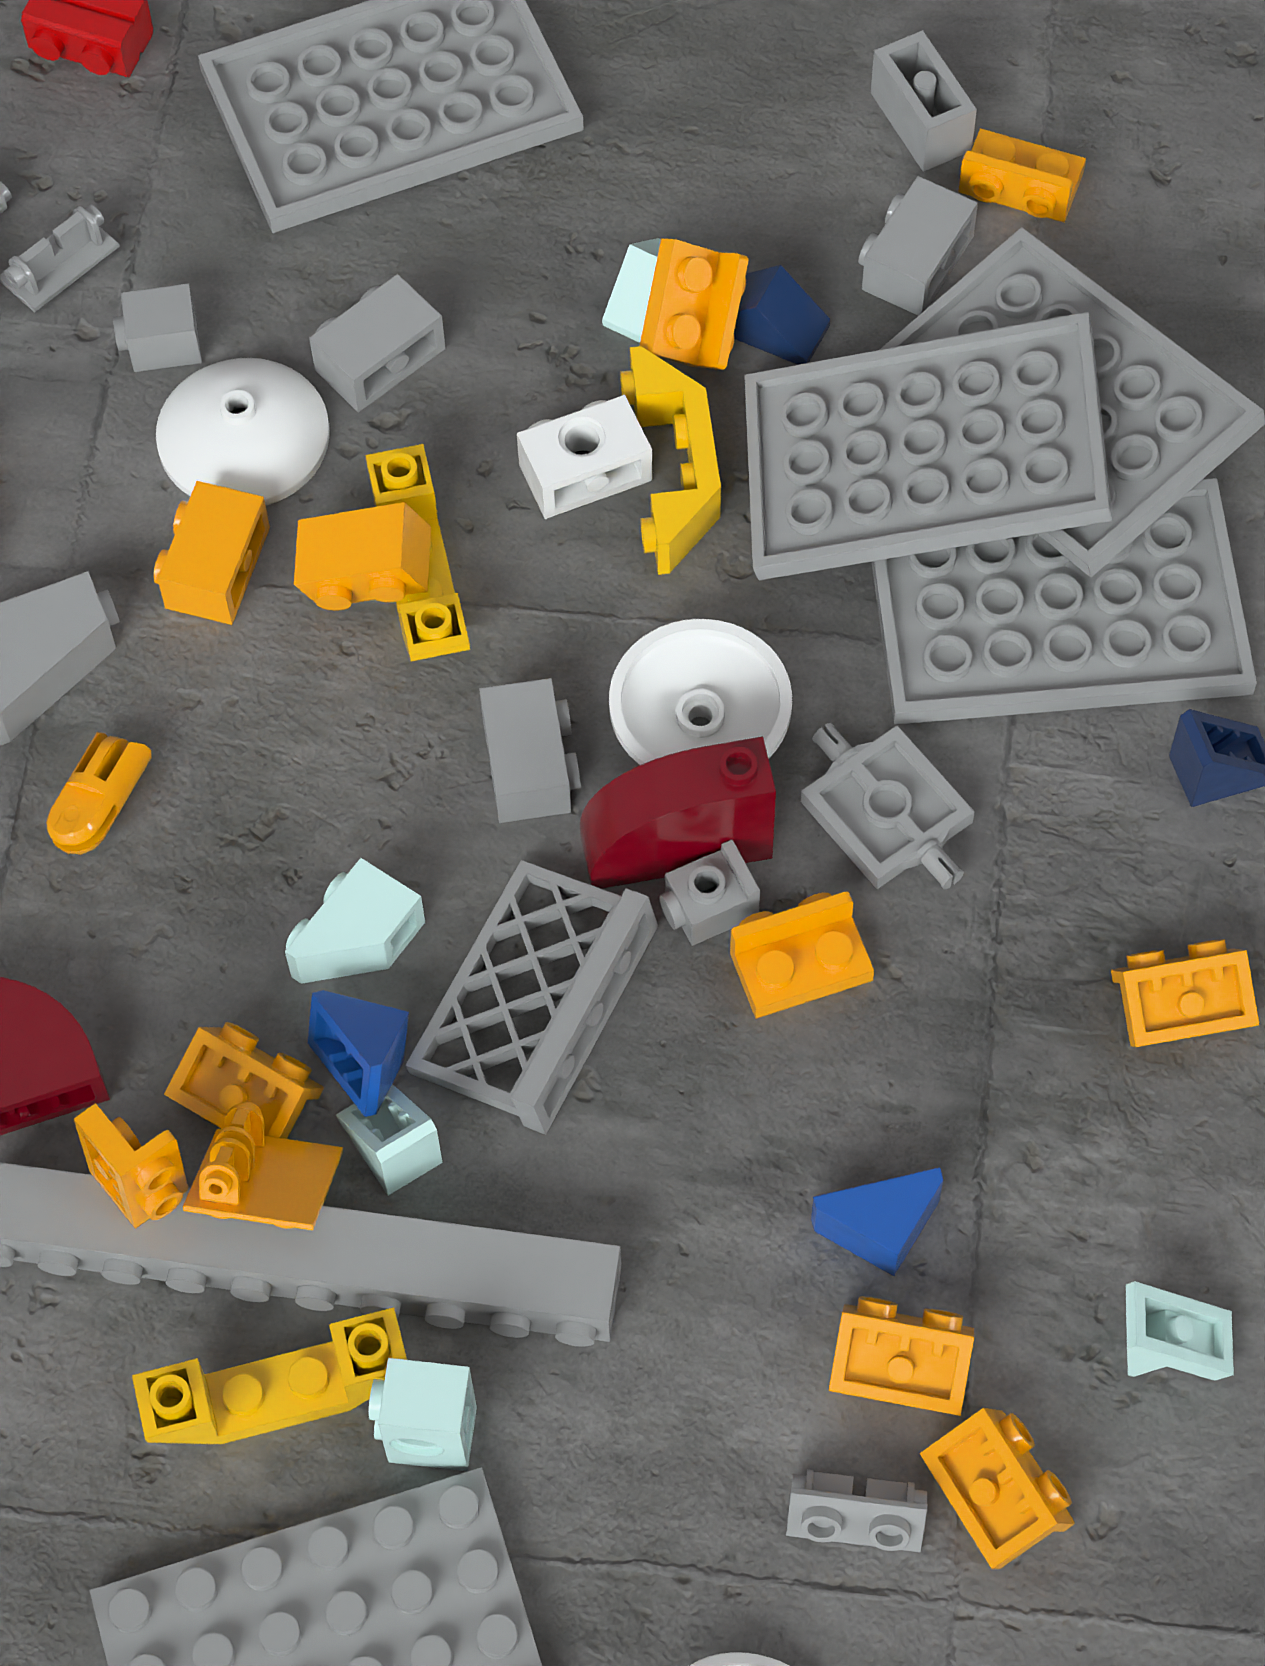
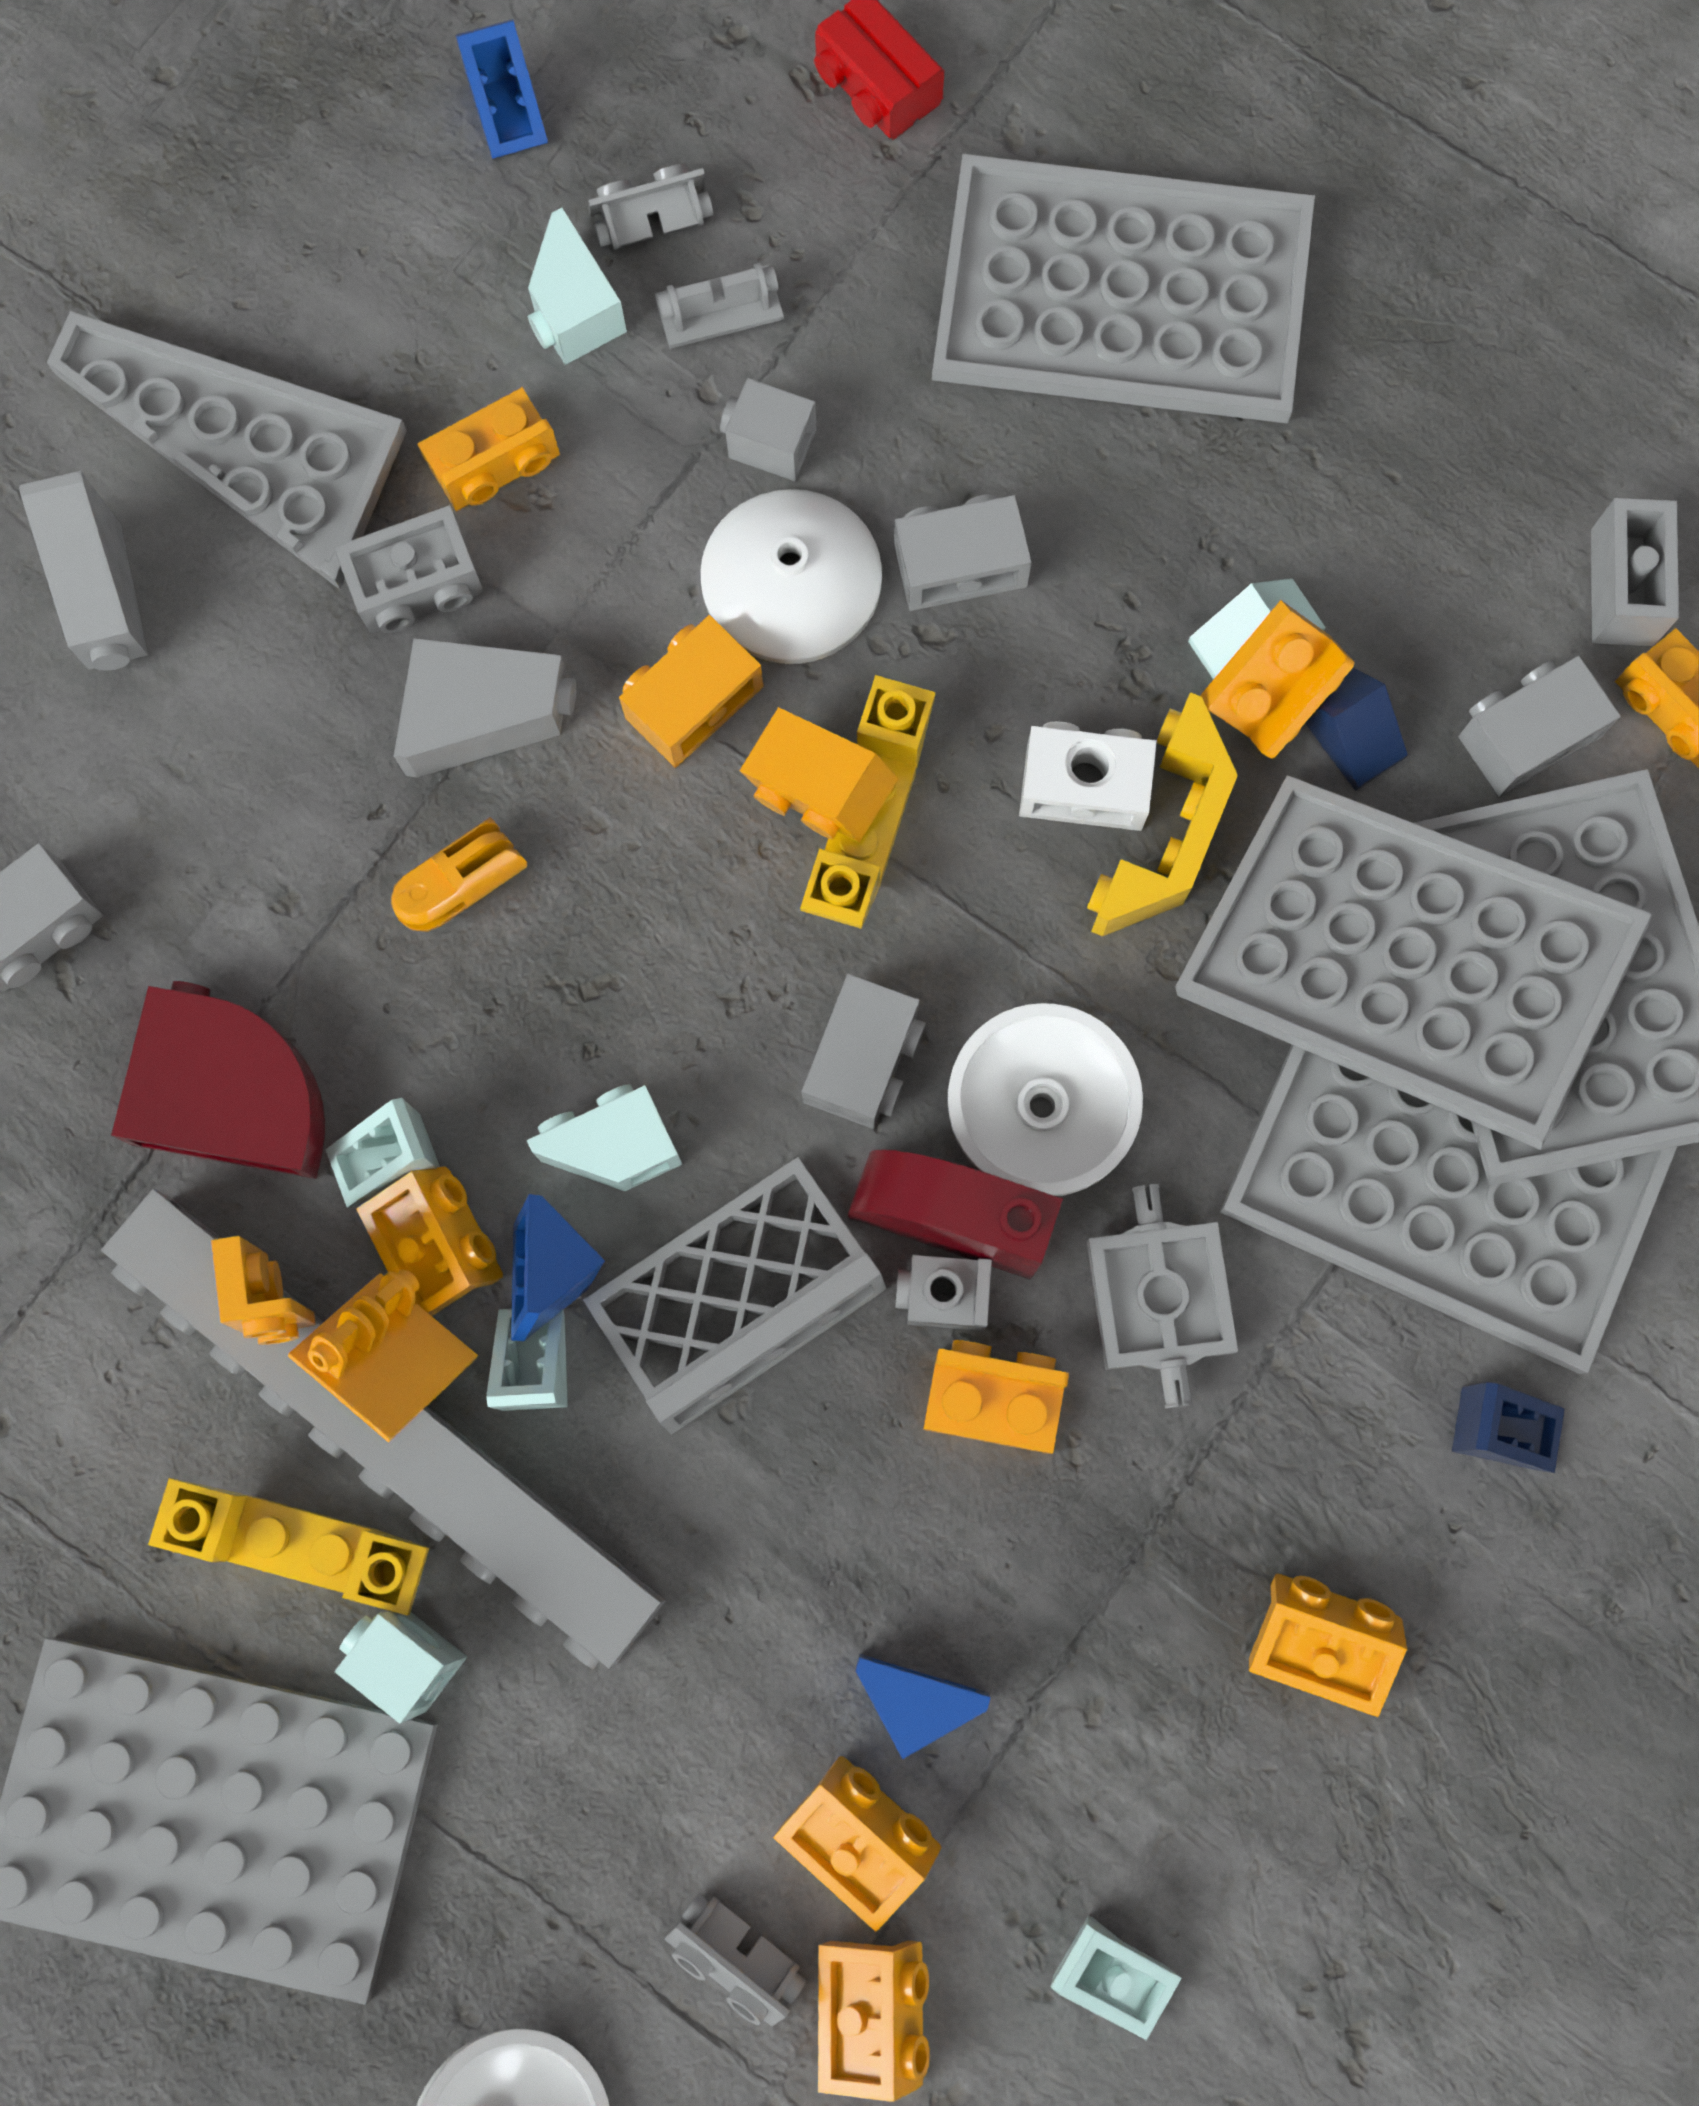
camera: 30 degrees right, 15 degrees up
(158, 1034) = (380, 1152): none -> light aqua slope

